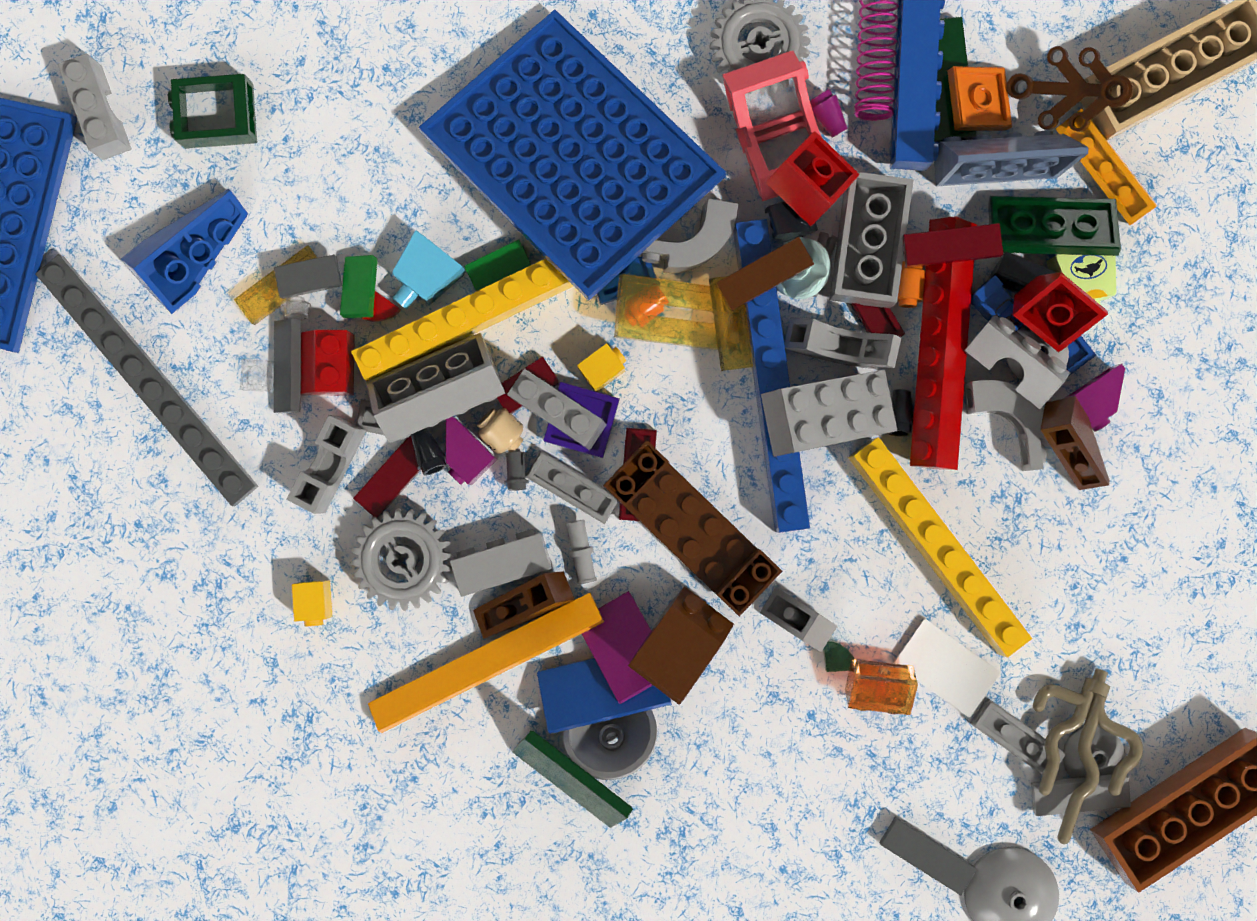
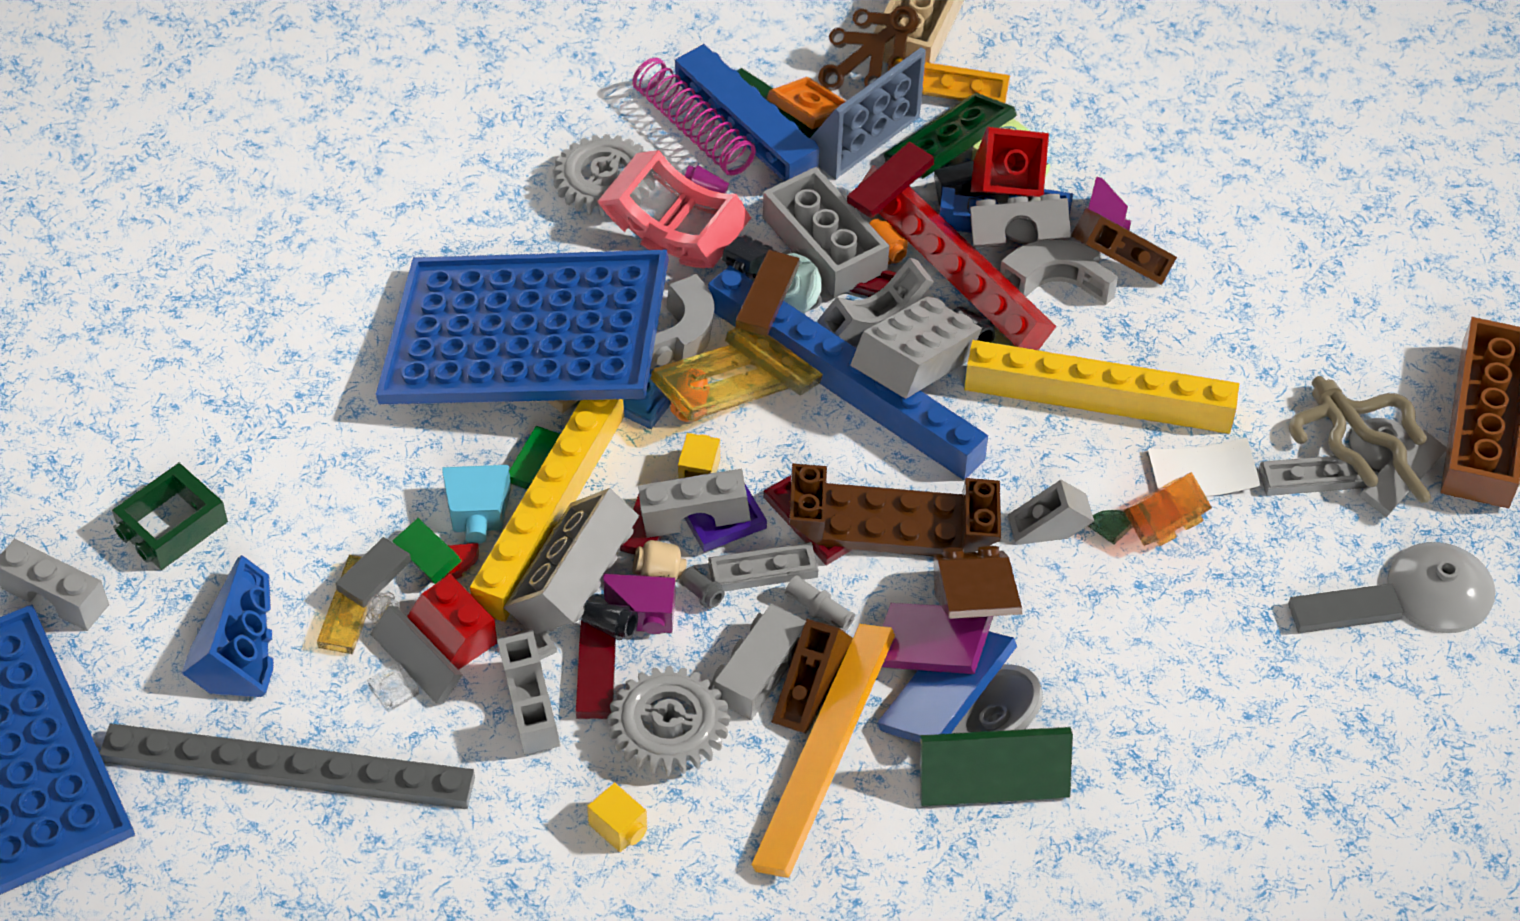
camera: 45 degrees left, 35 degrees down
(812, 178) = (739, 211): red slope -> none

